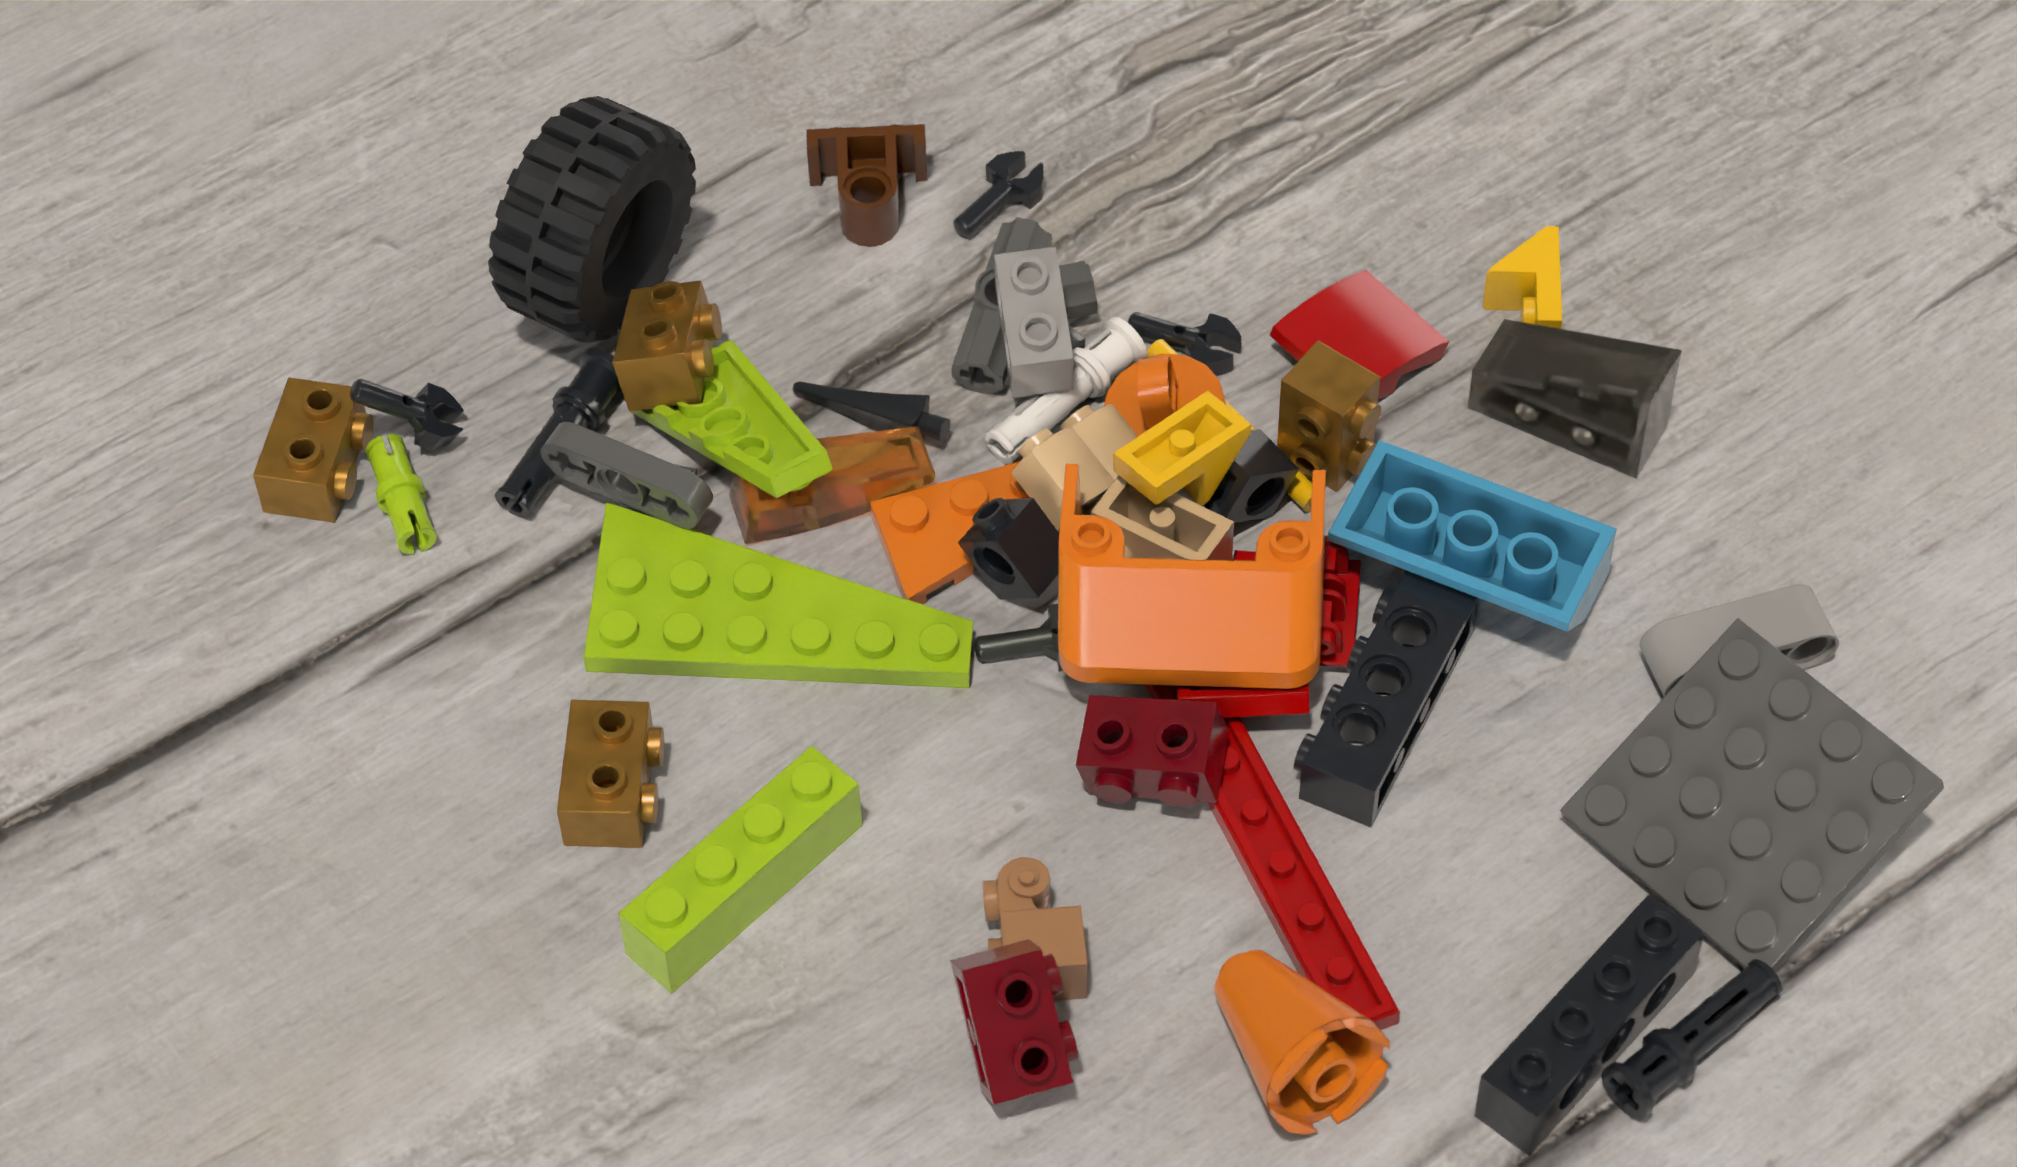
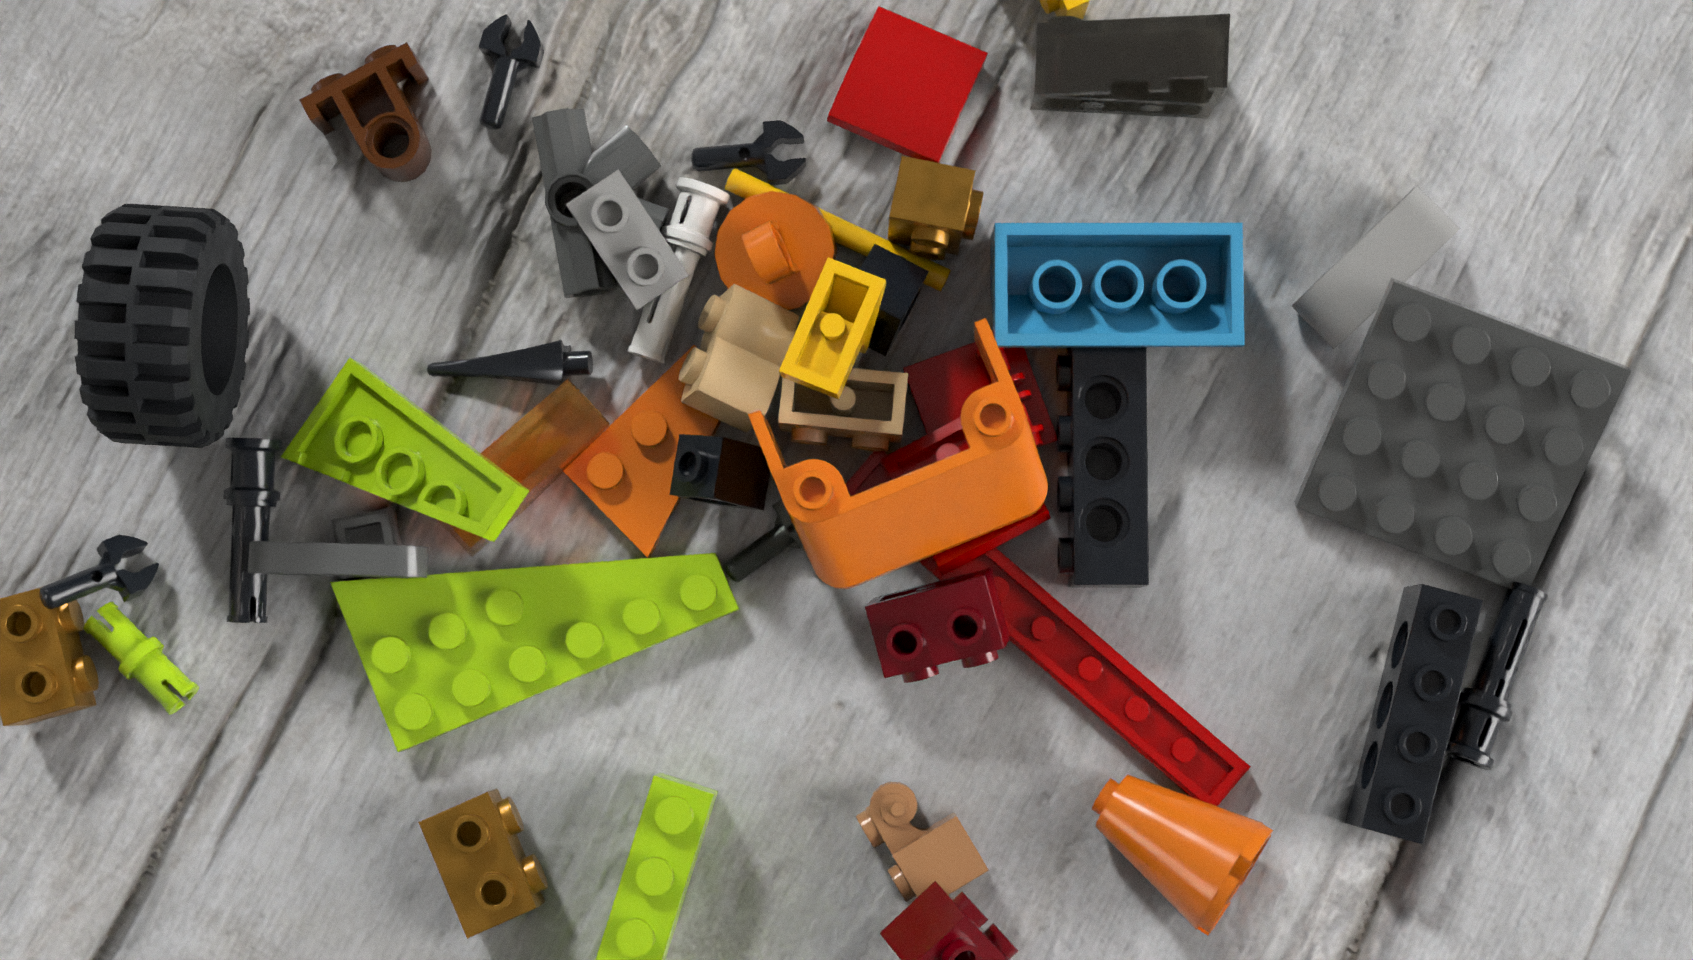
camera: 25 degrees left, 30 degrees up
(666, 345) = (298, 402): pearl gold brick -> none

